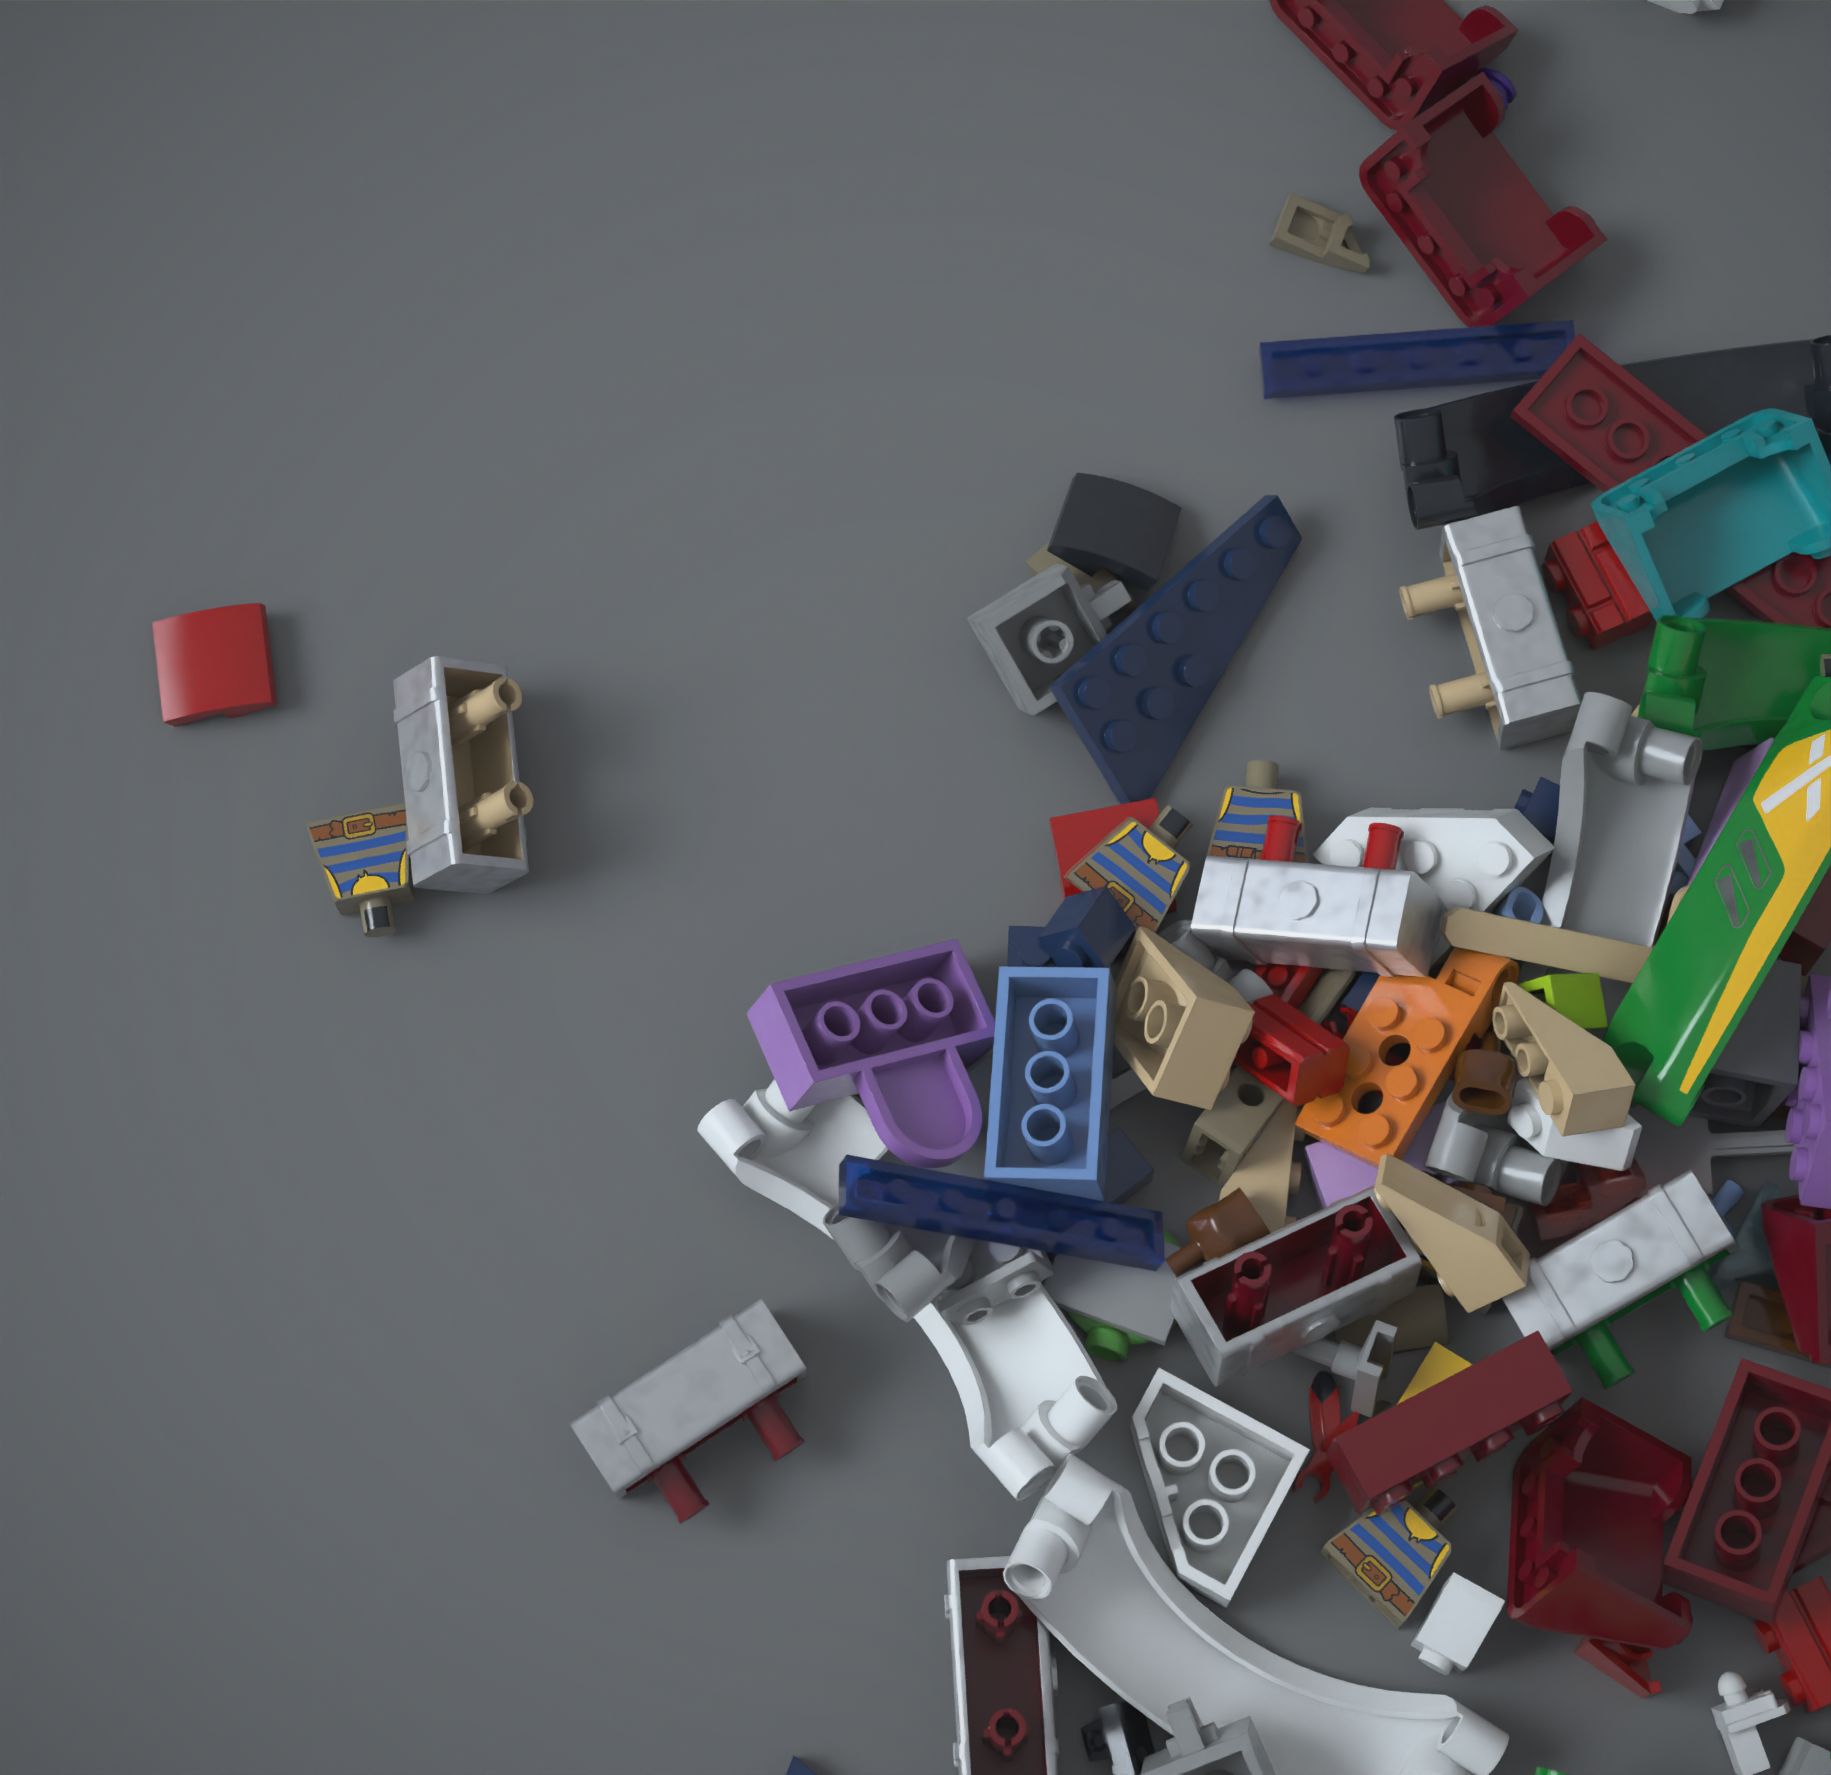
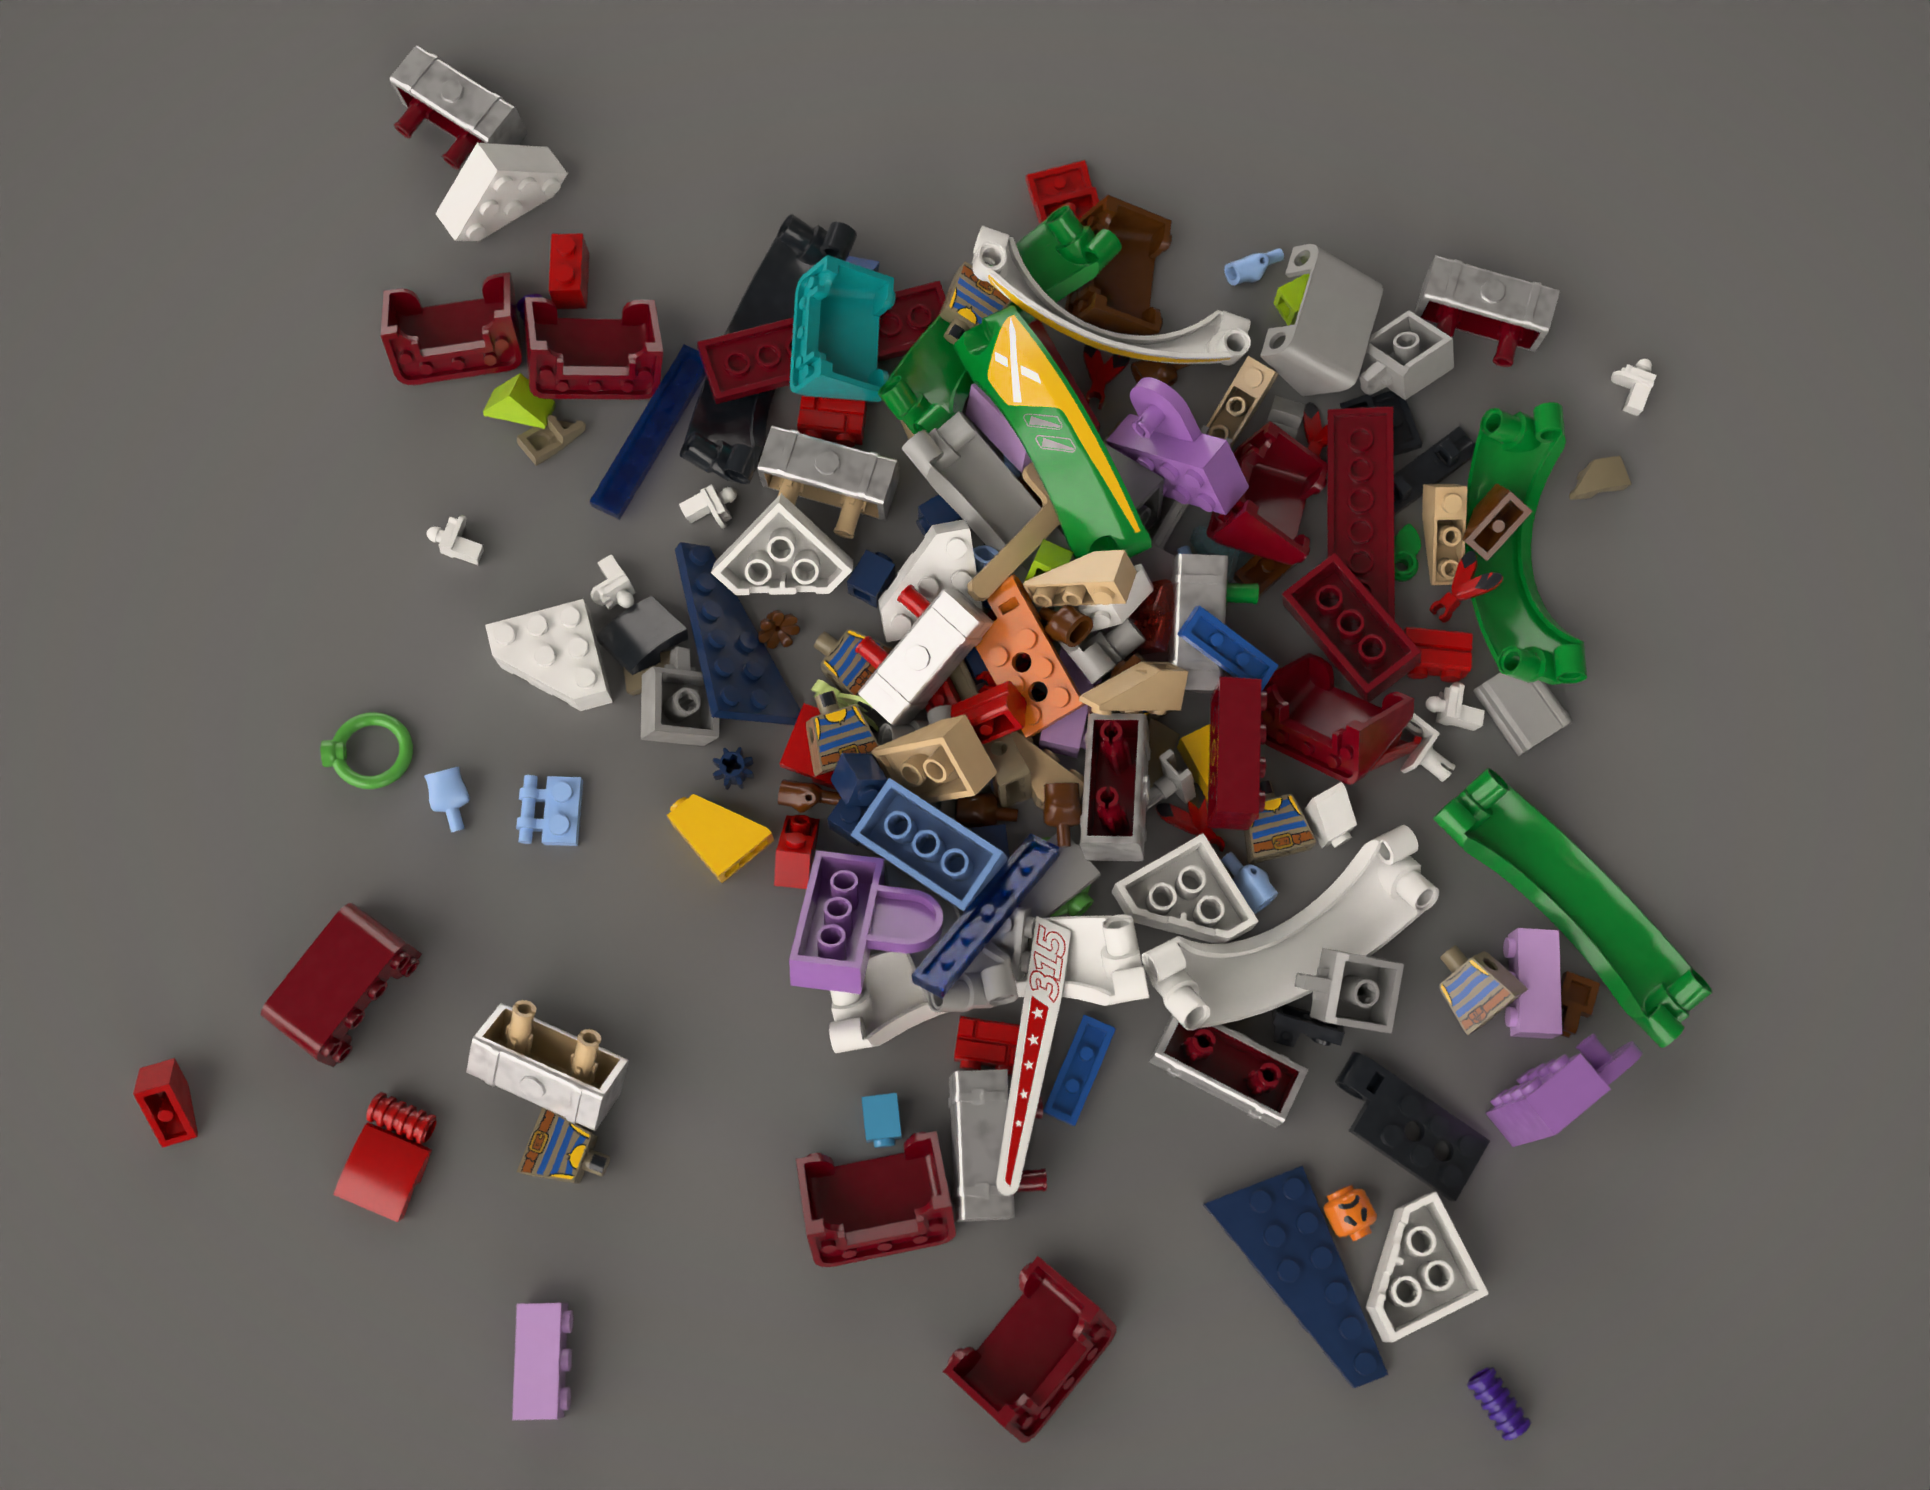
camera: 65 degrees left, 0 degrees up
(93, 1006) = (541, 1361): none -> lavender brick
(148, 350) = (166, 1102): none -> red slope
(293, 642) = (401, 1118): none -> red piece
(418, 452) = (337, 982): none -> dark red windscreen
(456, 1635) = (1034, 1352): none -> dark red windscreen
(532, 1305) = (876, 1203): none -> dark red windscreen
(649, 1249) = (881, 1119): none -> dark azure brick
(709, 254) = (335, 752): none -> bright green piece
(741, 427) = (447, 795): none -> light blue piece
(813, 581) = (561, 810): none -> light blue plate
(837, 1335) = (986, 1044): none -> red brick
(863, 1385) = (1034, 1041): none -> sticker
(875, 1476) = (1079, 1070): none -> blue plate
(901, 801) = (718, 835): none -> yellow slope
(945, 912) = (796, 851): none -> red slope
(1007, 747) = (737, 776): none -> dark blue gear
(1019, 436) = (554, 652): none -> white brick
(1027, 876) = (804, 795): none -> reddish brown piece
(1088, 206) = (453, 544): none -> white piece
(1157, 1132) = (982, 811): none -> reddish brown piece
(1161, 456) = (615, 589): none -> white piece
(1195, 812) = (846, 700): none -> yellowish green piece
(1241, 701) = (778, 629): none -> reddish brown plant
(1287, 1566) = (1251, 882): none -> light blue piece
(1333, 161) = (517, 404): none -> lime slope
(1346, 641) = (782, 556): none -> white brick
(1366, 501) = (709, 501): none -> white piece
(1400, 777) = (871, 577): none -> dark blue brick
(1576, 104) = (569, 271): none -> red brick
(1595, 1323) = (1226, 647): none -> blue plate
(1645, 1715) = (1424, 752): none -> white bracket

